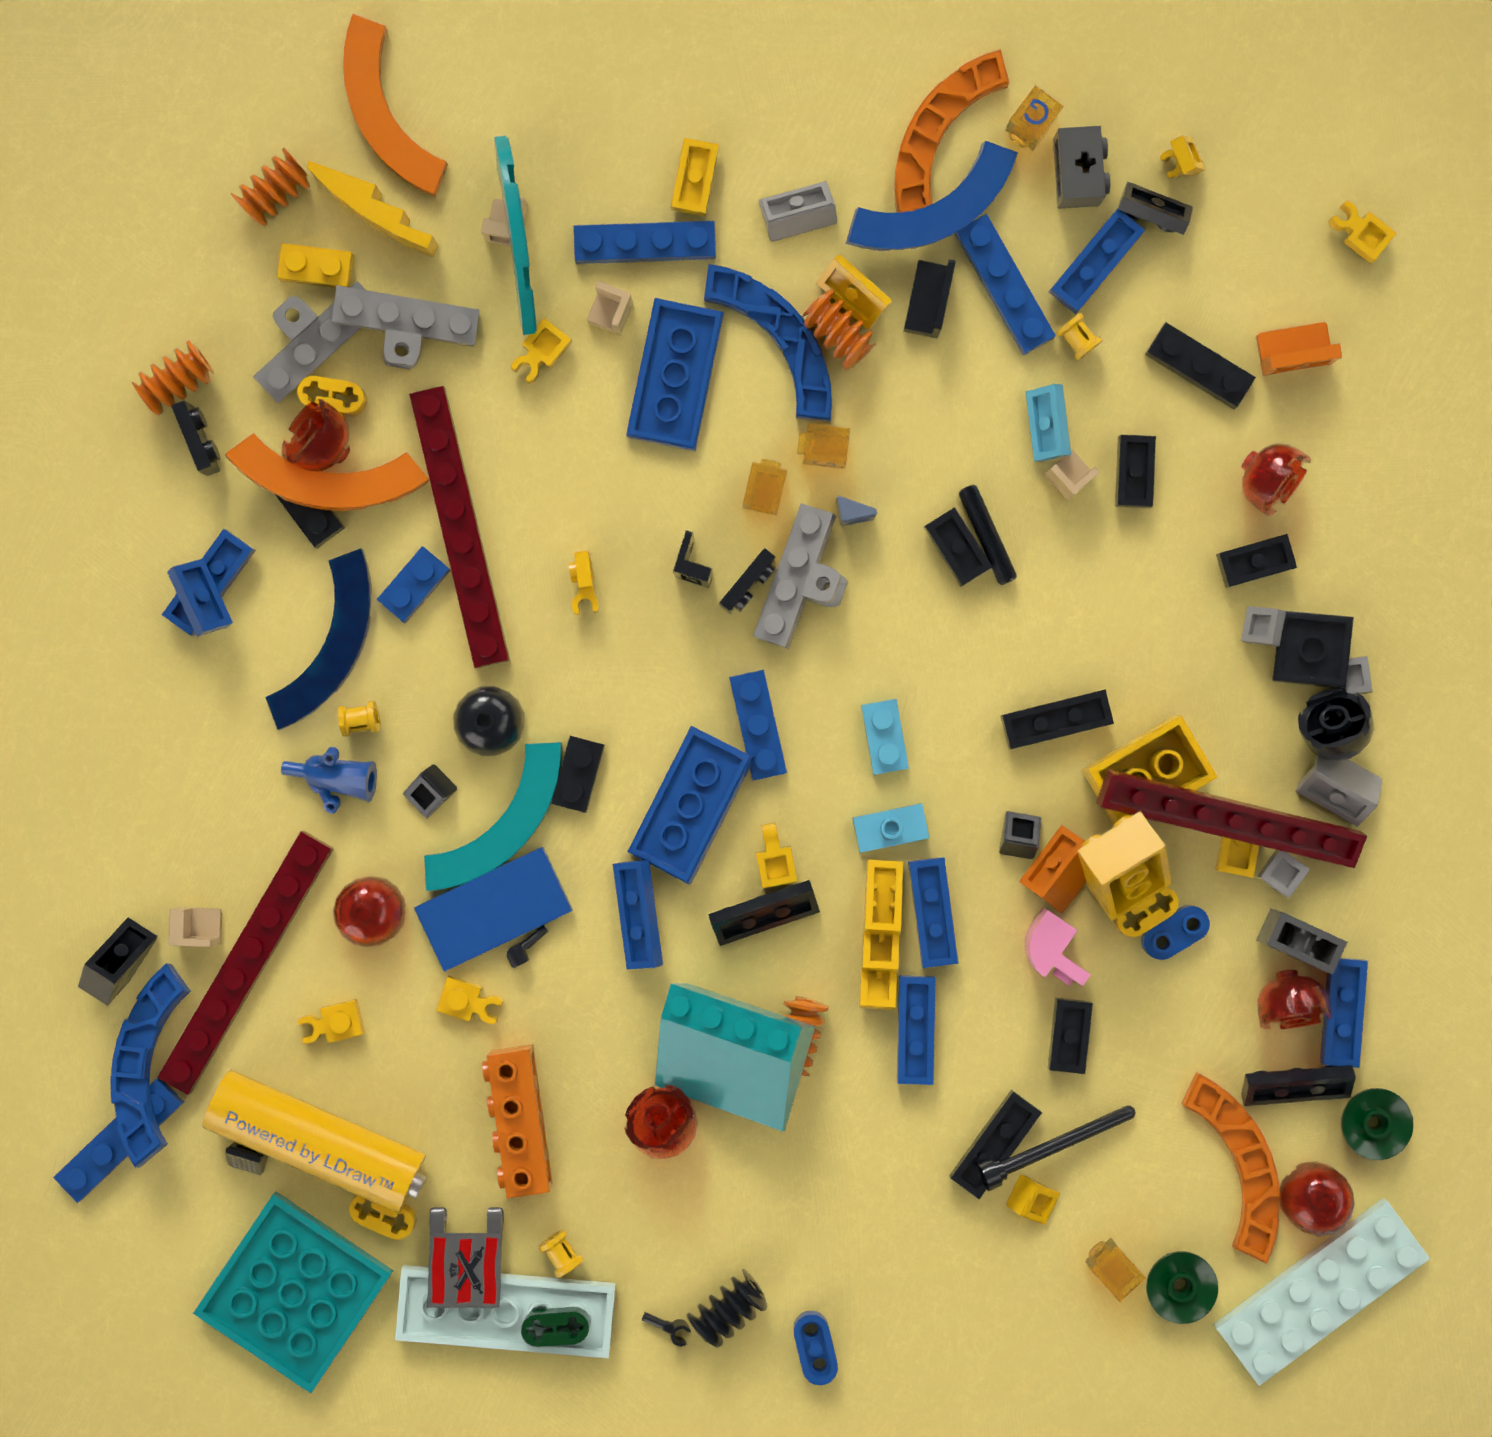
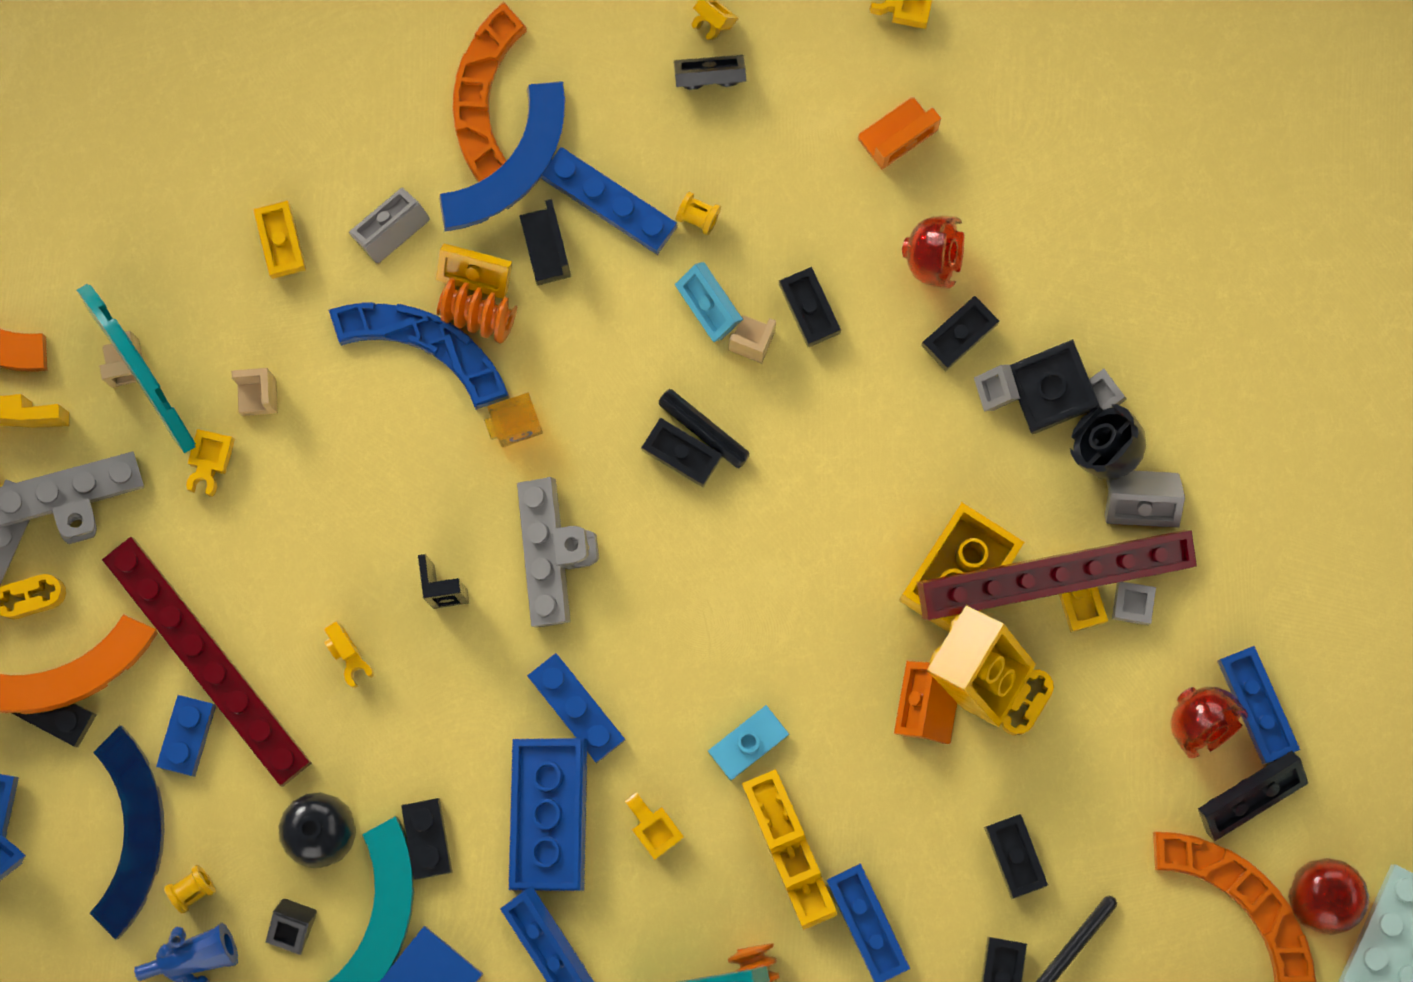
camera: 25 degrees left, 10 degrees down
(318, 438) = (32, 641): clear red cylinder -> none
(644, 242) = (260, 319): blue plate -> none
(675, 374) = (344, 424): blue tile -> none
(739, 594) = (499, 593): black plate -> none
(764, 913) = (667, 883): black plate -> none
(765, 487) = (476, 484): clear yellow brick -> none
(852, 512) = (570, 467): sand blue slope -> none
(884, 736) = (700, 660): medium azure plate -> none
(933, 912) = (827, 802): blue plate -> none
(1020, 835) = (873, 690): black slope -> none
(1033, 118) = (562, 46): clear yellow brick -> none
(1045, 944) = (948, 780): bright pink brick -> none
(1057, 719) = (852, 564): black plate -> none
(1072, 185) = (627, 86): dark grey brick -> none
(1096, 261) = (680, 141): blue plate -> none
(1176, 932) = (1064, 708): blue plate -> none
(1200, 365) = (820, 187): black plate -> none
(1301, 941) = (1183, 657): dark grey brick -> none
(1390, 1133) = (1363, 792): dark green dish -> none

